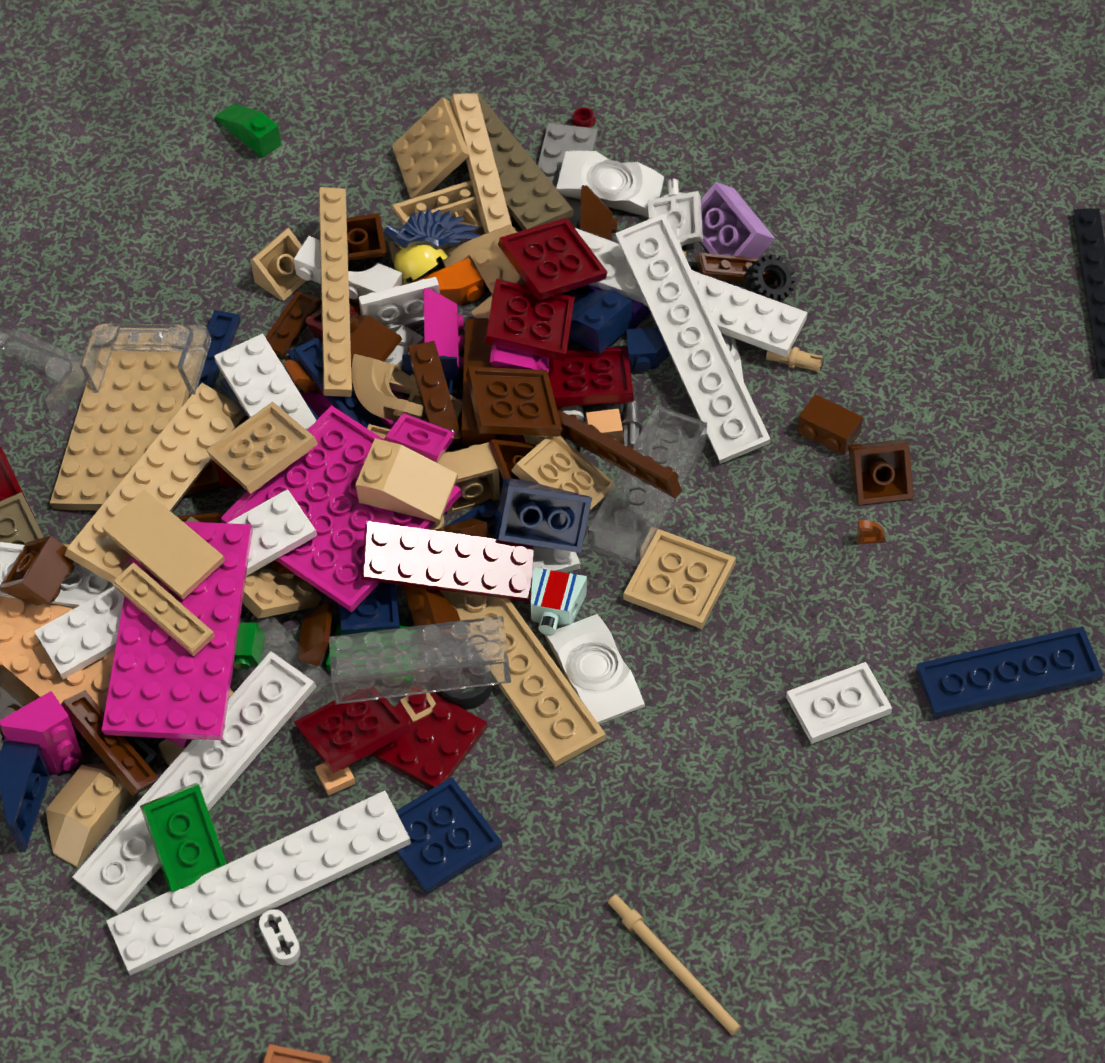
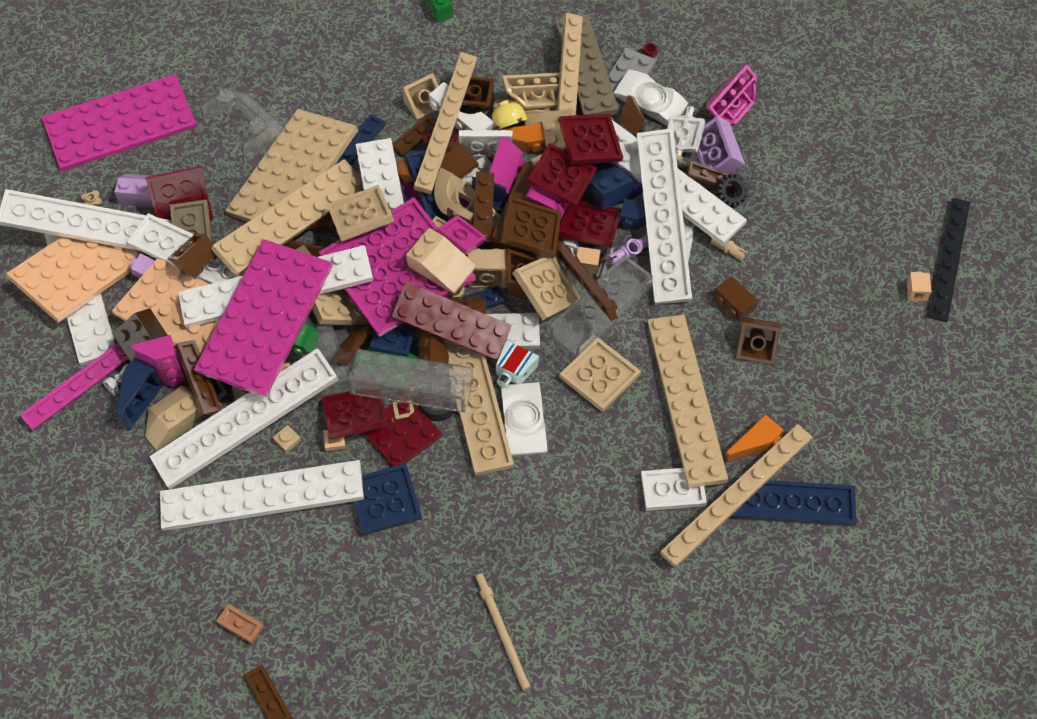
camera: 15 degrees right, 5 degrees up
(163, 544) = (272, 259): tan tile -> none
(163, 609) = (257, 302): tan tile -> none
(183, 836) = (222, 452): green plate -> none
(189, 339) = (343, 129): clear windscreen -> none
(264, 794) = (286, 438): none -> tan plate
(273, 940) = (266, 534): white beam -> none
(430, 149) = (542, 45): tan plate -> none
(432, 230) = (521, 99): dark blue animal -> none
(541, 516) = (522, 308): dark blue slope -> none
(660, 394) = (635, 246): none -> lavender pin
(726, 149) = (734, 96): none -> dark pink wedge
(814, 580) = (687, 402): none -> tan plate
(870, 532) = (736, 379): dark orange tile -> none
(928, 687) = (735, 496): none -> tan plate
(929, 604) = (756, 440): none -> orange slope
(1072, 339) = (918, 286): none -> light nougat brick

